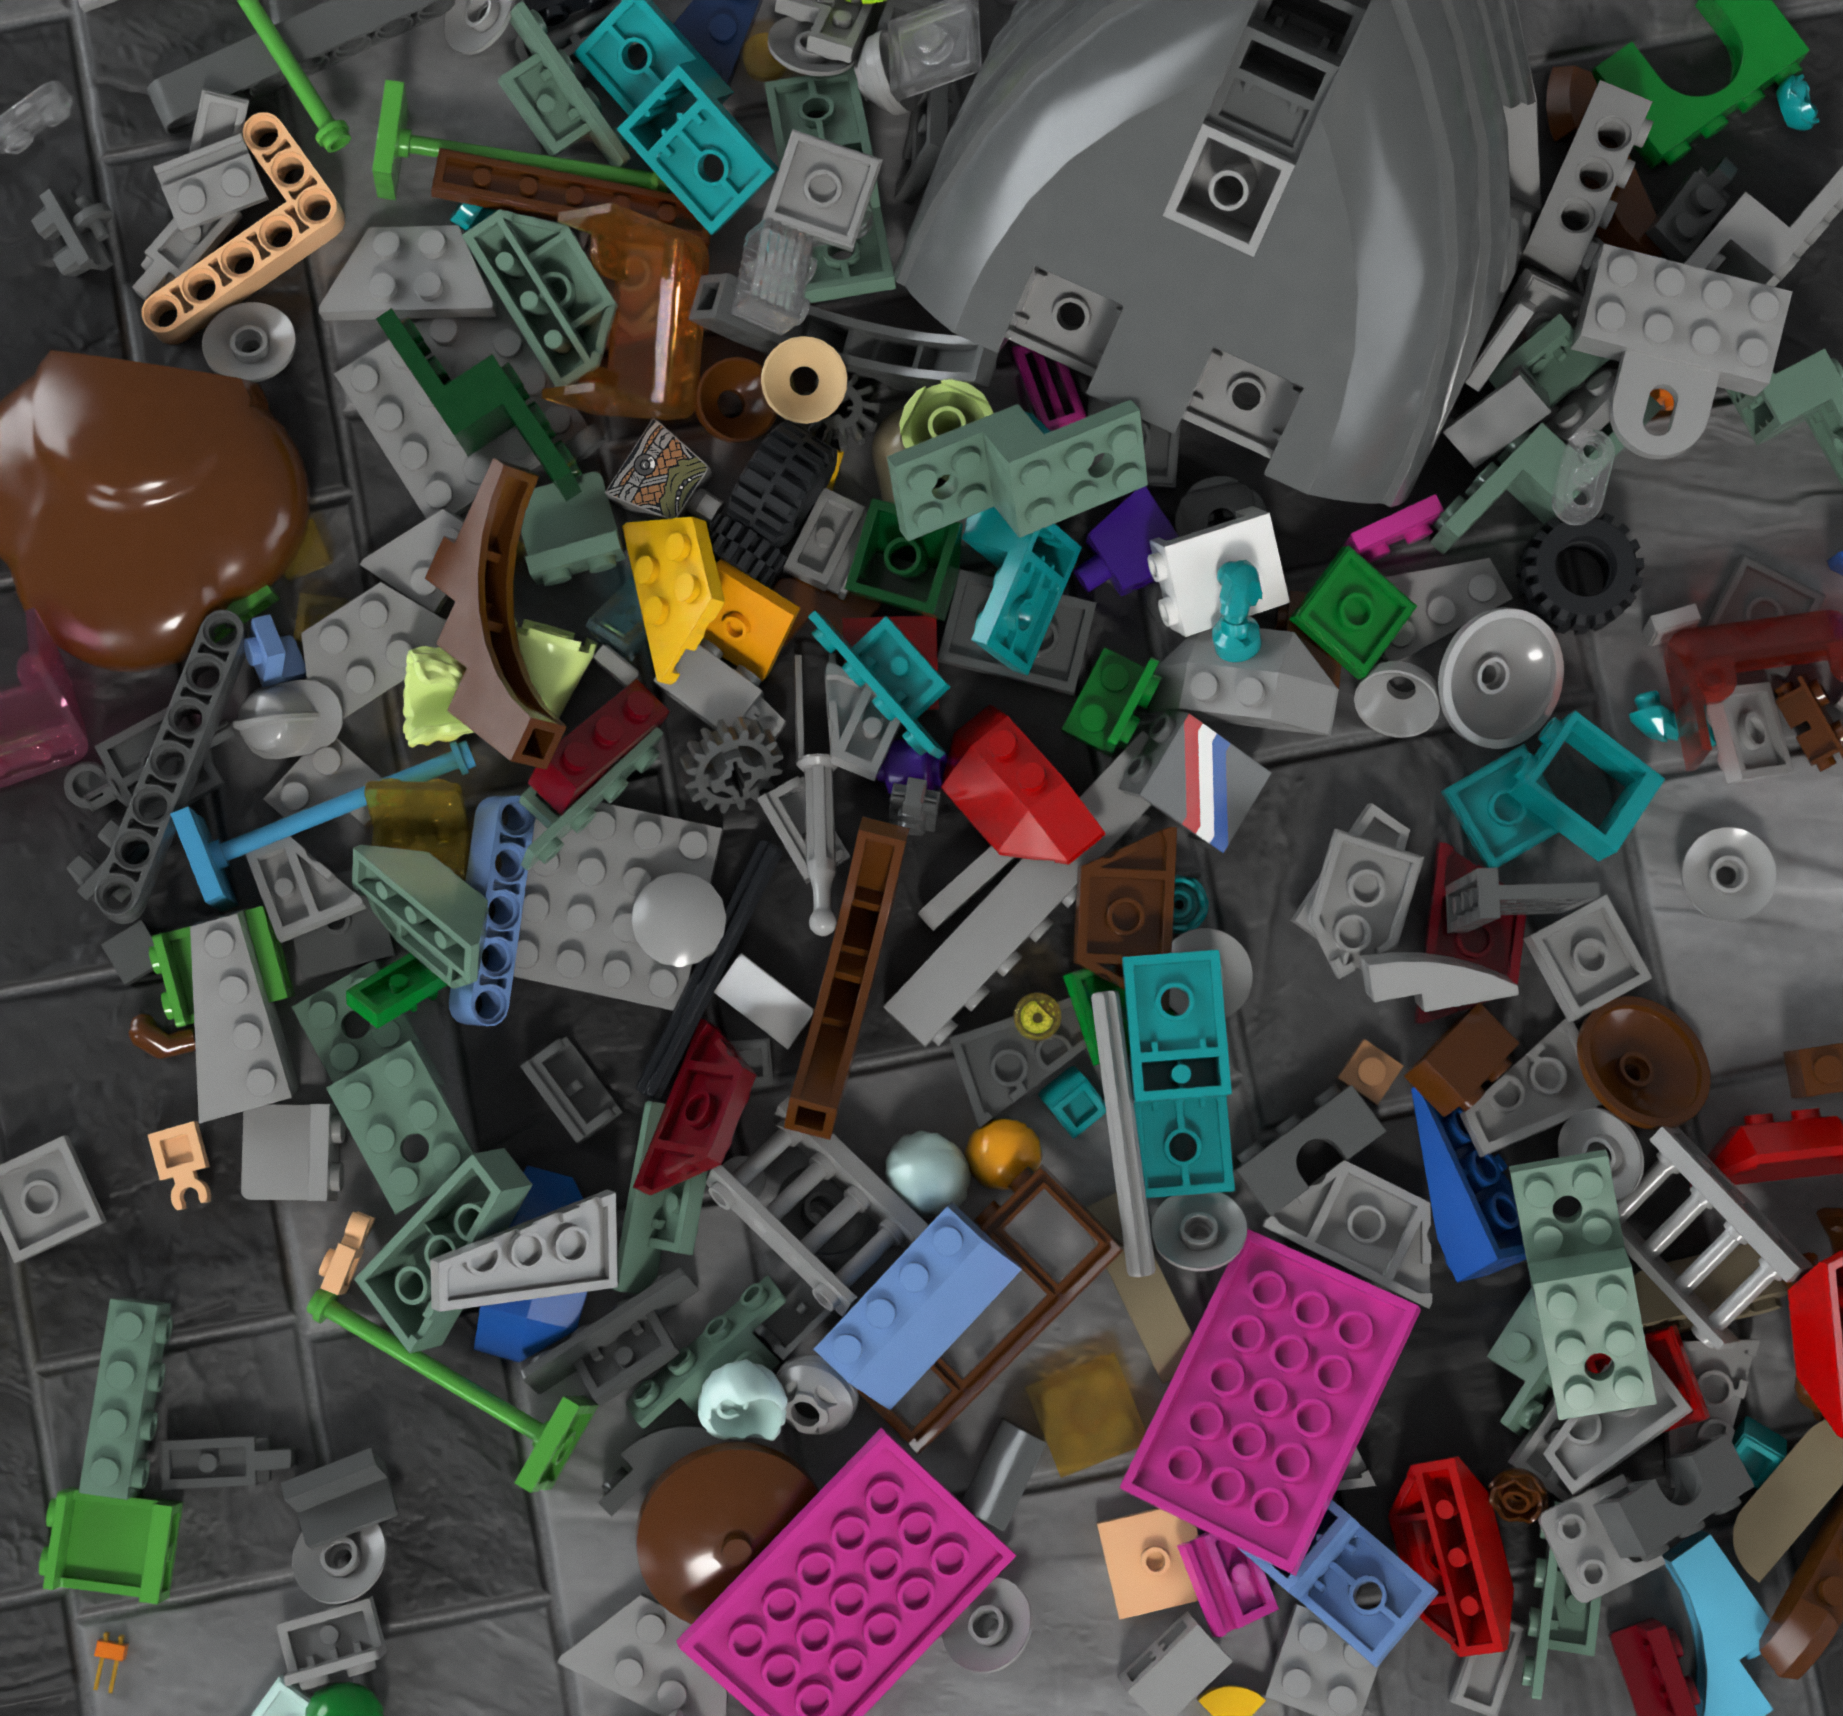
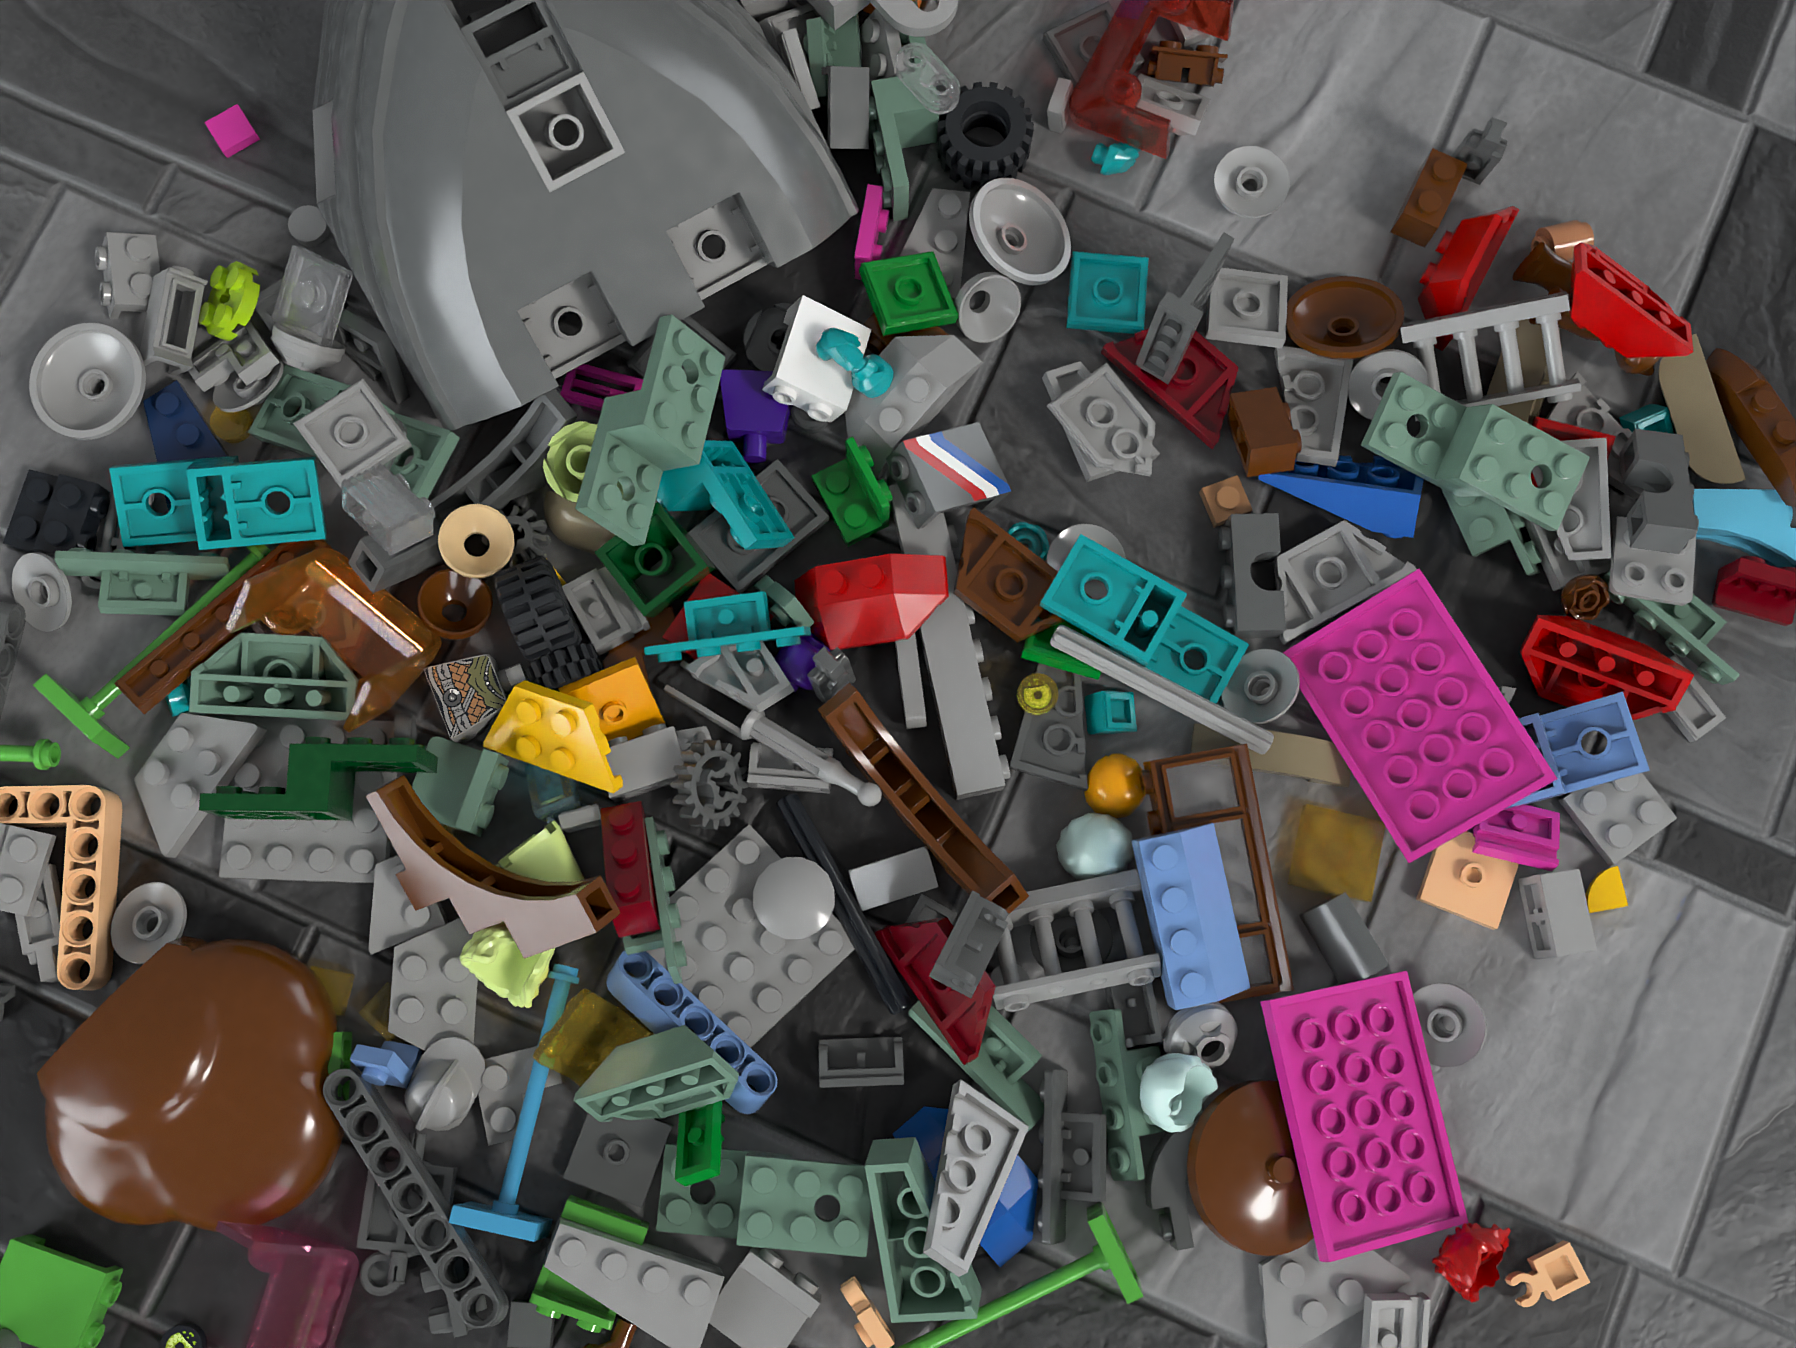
camera: 60 degrees left, 5 degrees down
(299, 889) = (574, 1164): light grey wing -> none
(741, 1114) = (970, 945): none -> dark grey hinge
(951, 715) = (784, 604): none -> sand green plate
(1432, 979) = (1195, 413): light grey slope -> none
(1637, 777) = (1148, 195): teal window -> none

